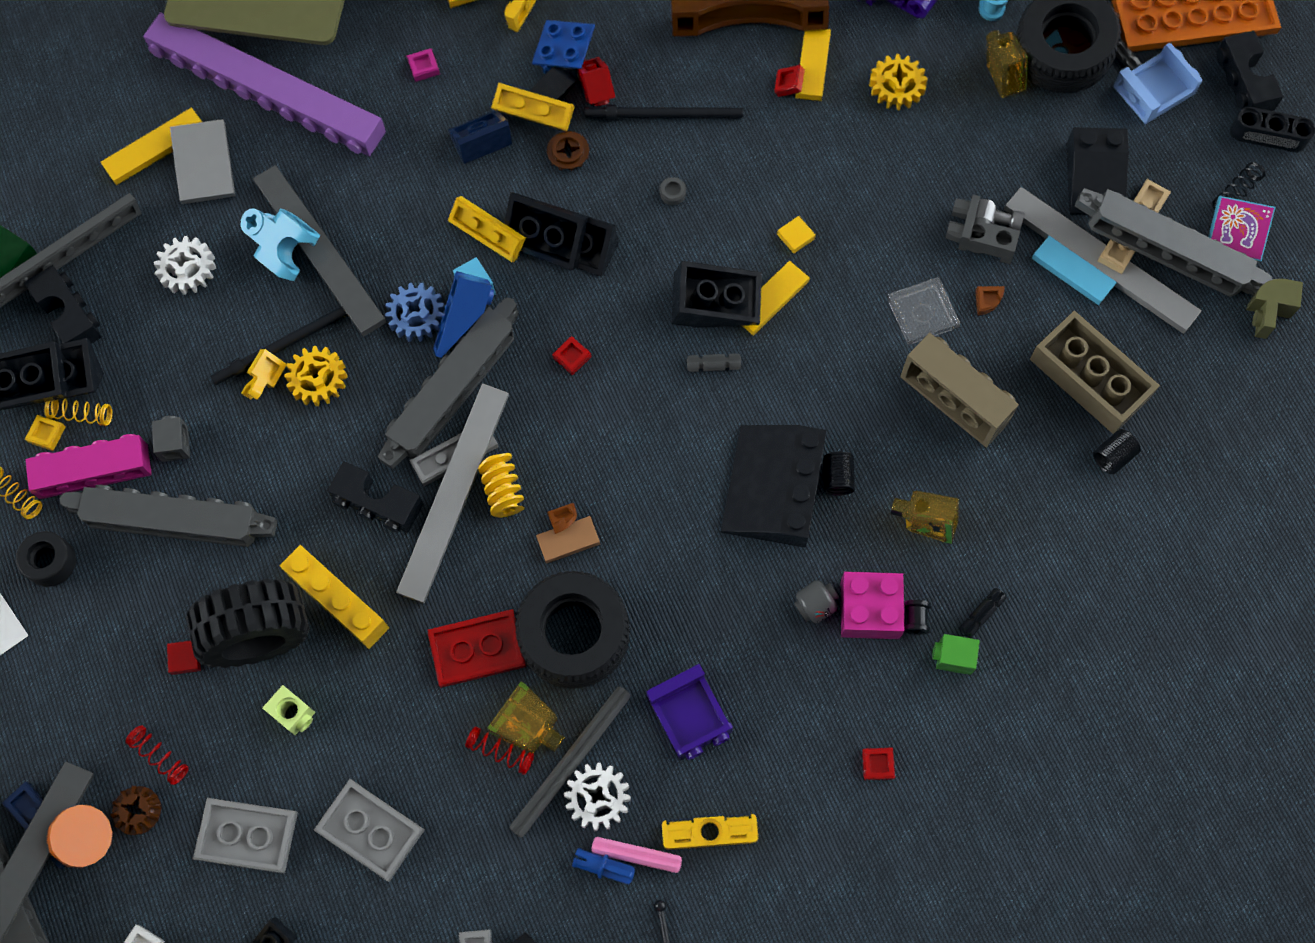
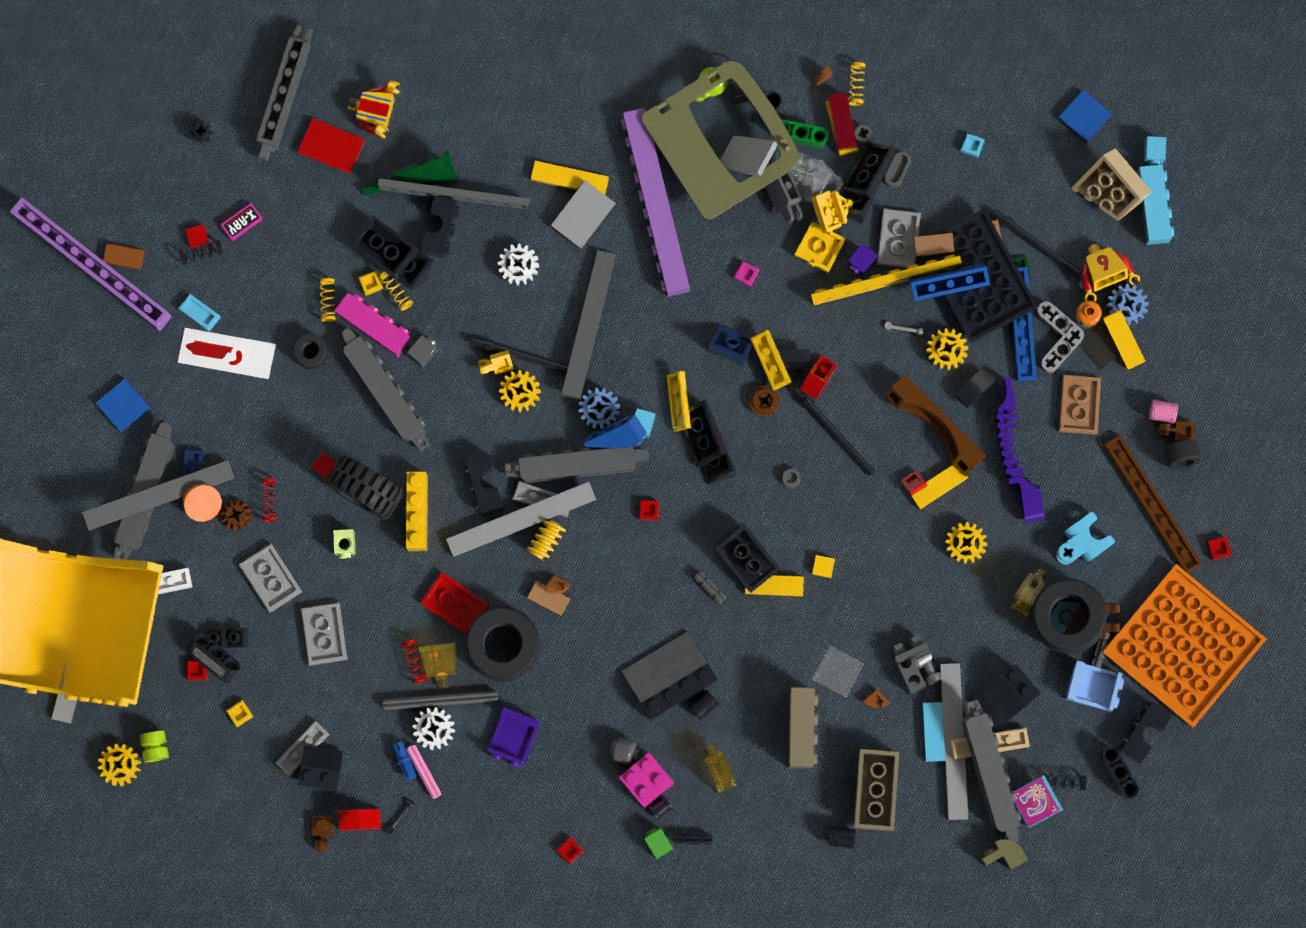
camera: 50 degrees right, 10 degrees up
(277, 239) = (573, 299): medium azure piece -> none
(563, 45) = (822, 342): blue hinge -> none
(731, 832) = (474, 806): yellow piece -> none

